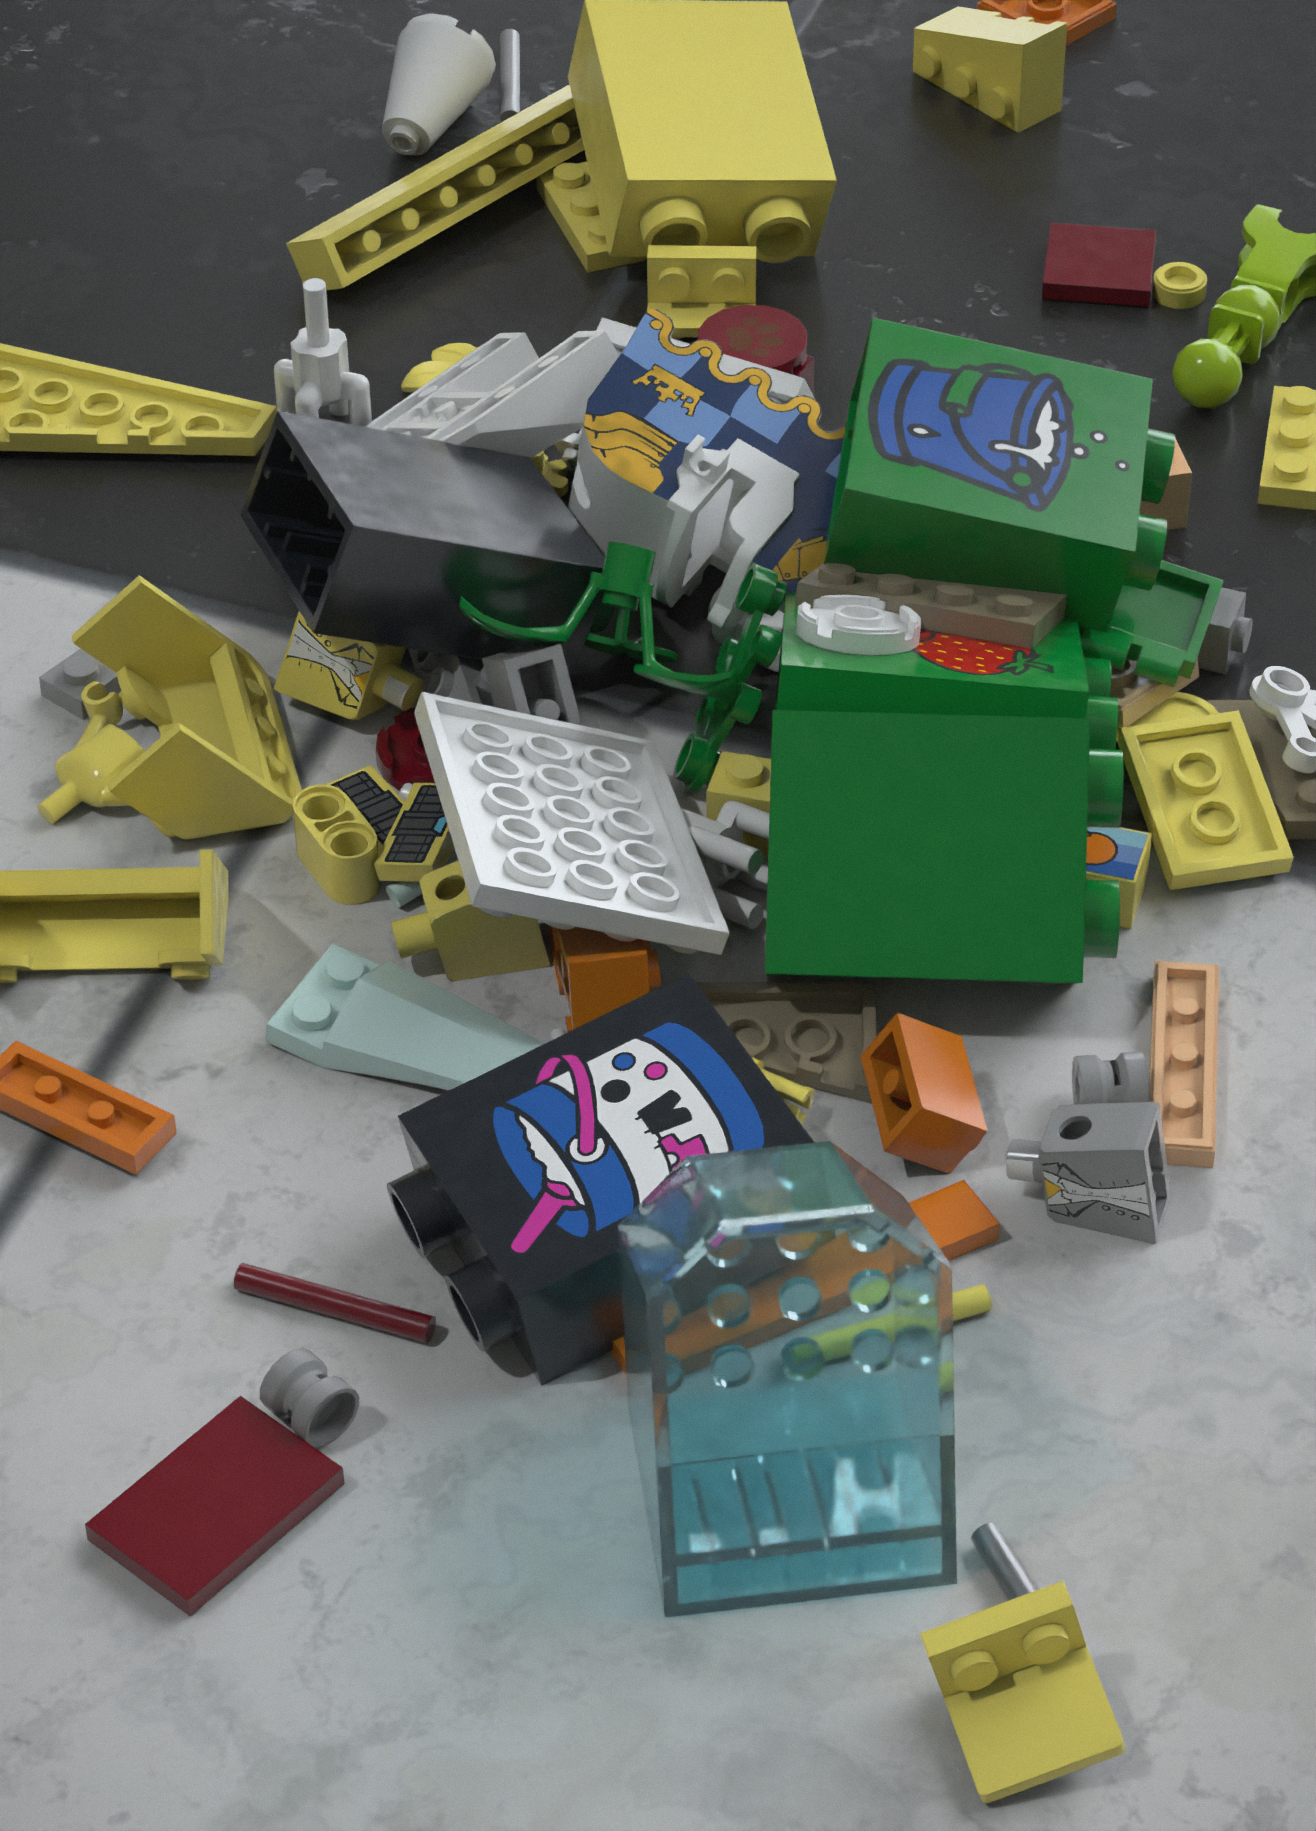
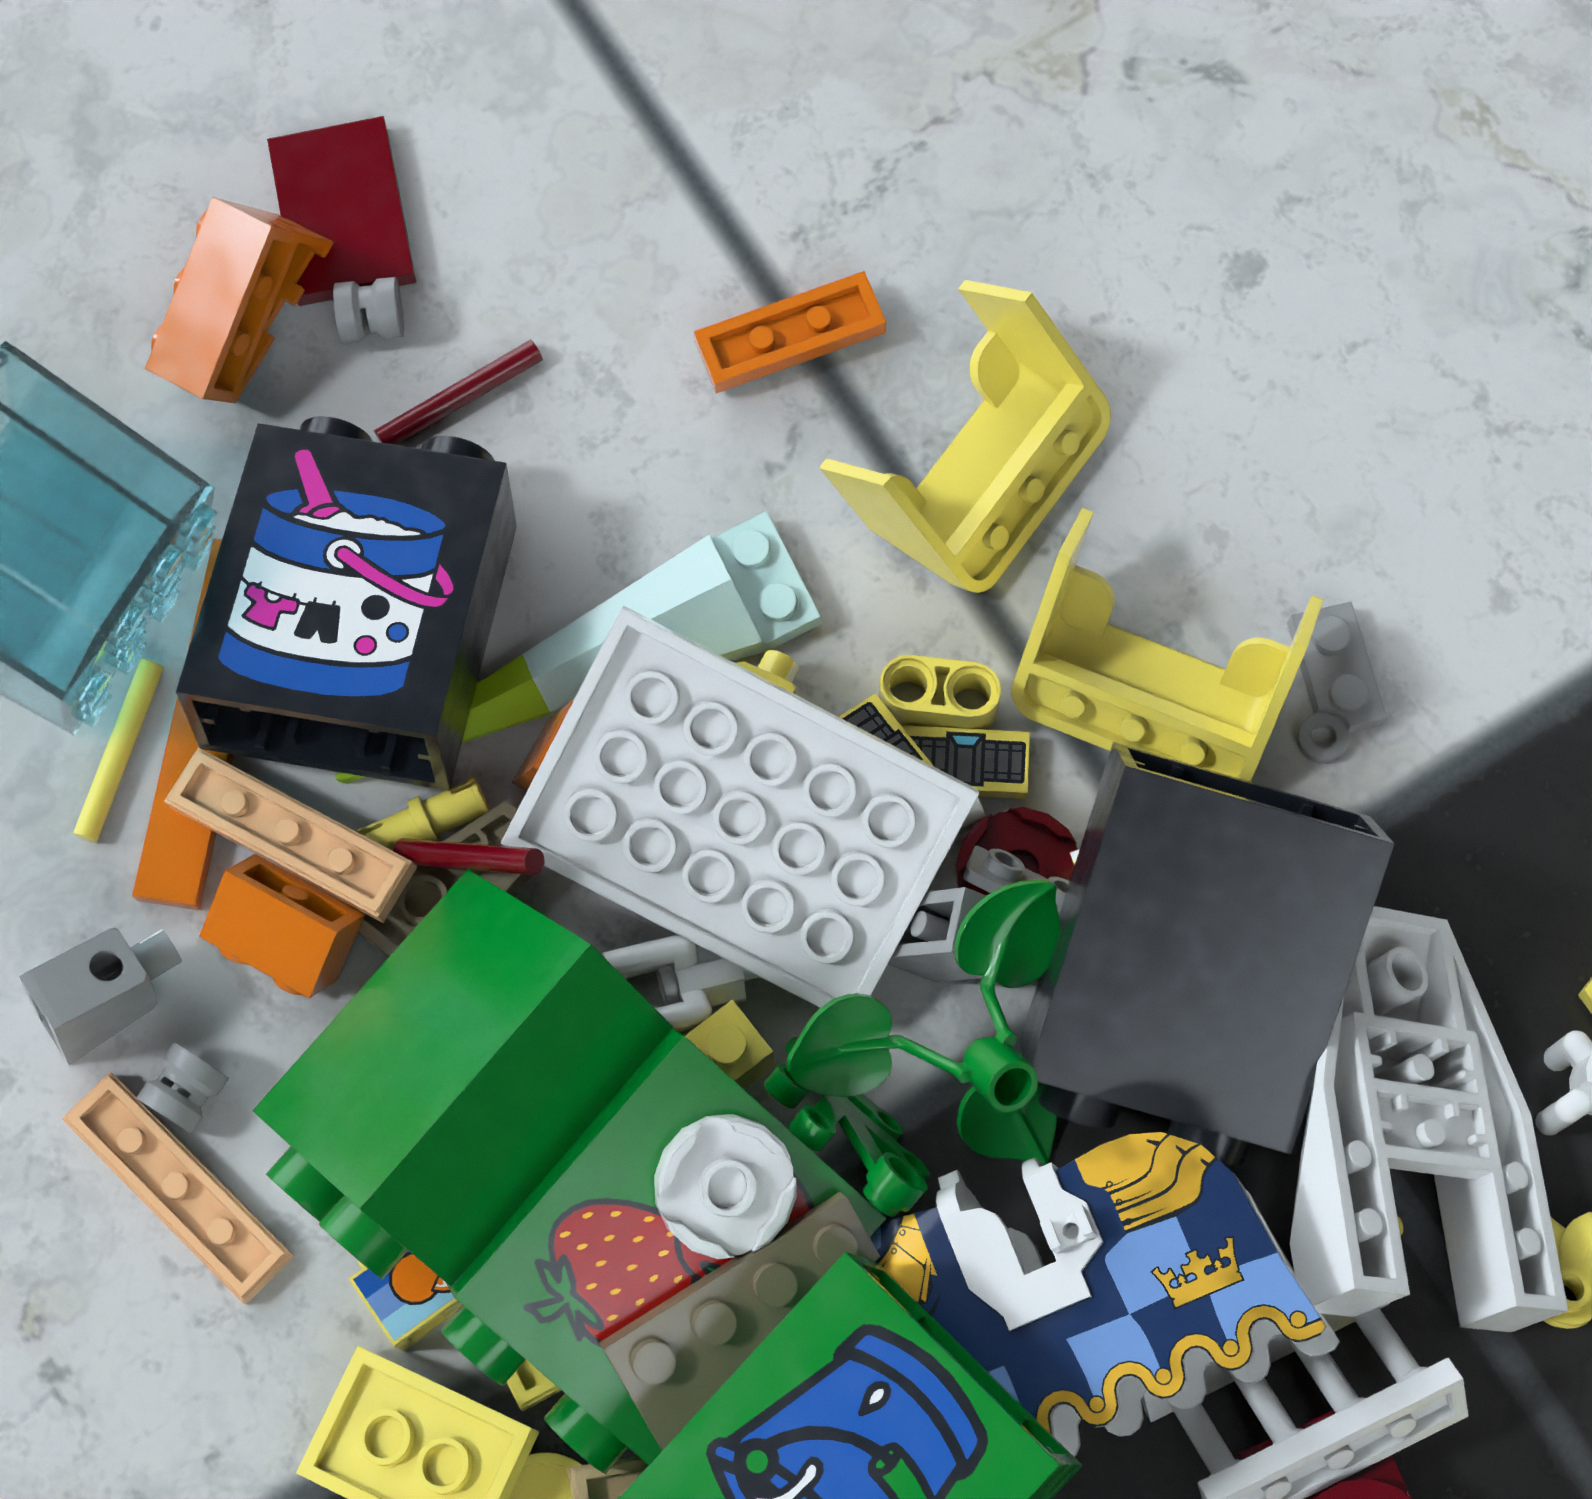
camera: 130 degrees right, 30 degrees up
(95, 759) = (1186, 587): light yellow piece -> none
(390, 1470) = (228, 298): none -> orange wedge
(755, 974) = (471, 856): none -> dark red bar
(839, 1093) = (290, 835): none -> light nougat tile

